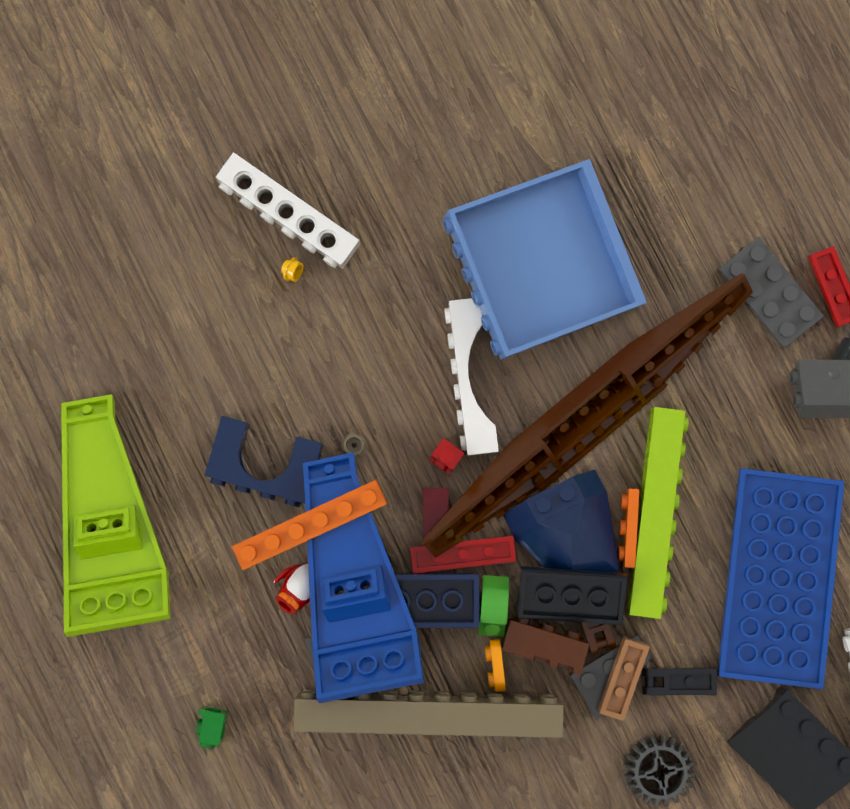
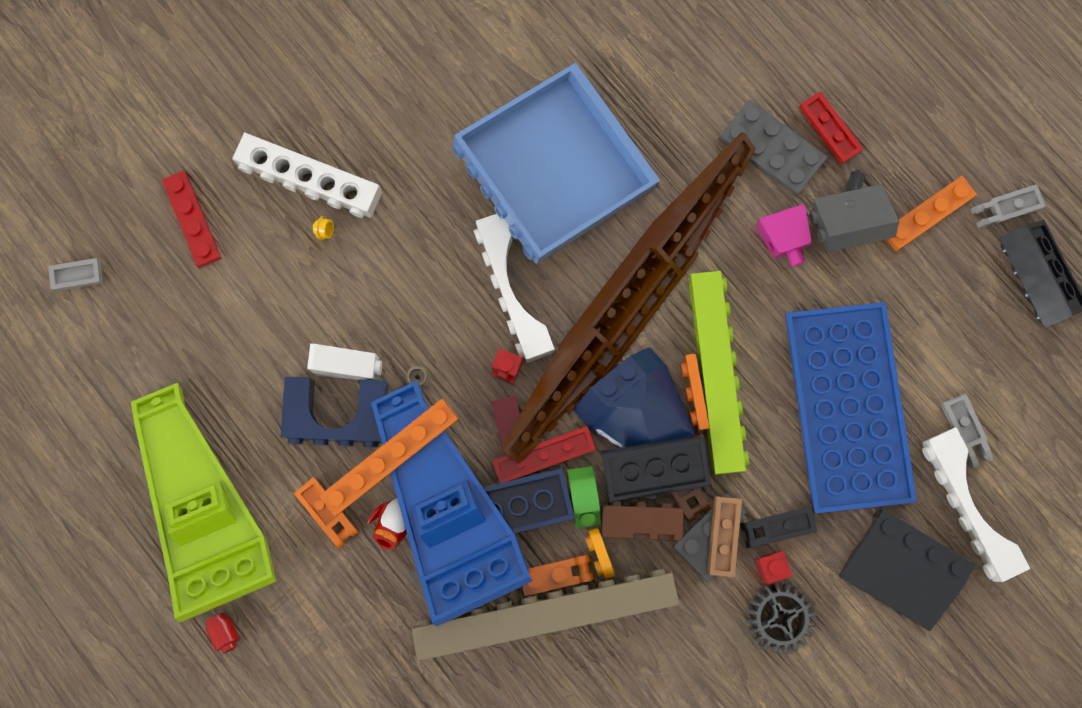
camera: 10 degrees left, 5 degrees down
(30, 258) = (75, 274): none -> light grey tile
(105, 655) = (222, 633): none -> red brick
(160, 228) = (191, 219): none -> red plate
(211, 727) = (339, 678): green brick -> none
(221, 541) = (310, 499): none -> orange plate
(284, 415) = (343, 363): none -> white slope
(451, 676) = (558, 575): none -> orange plate
(664, 719) = (773, 567): none -> red brick
(762, 387) = (786, 234): none -> dark pink torso

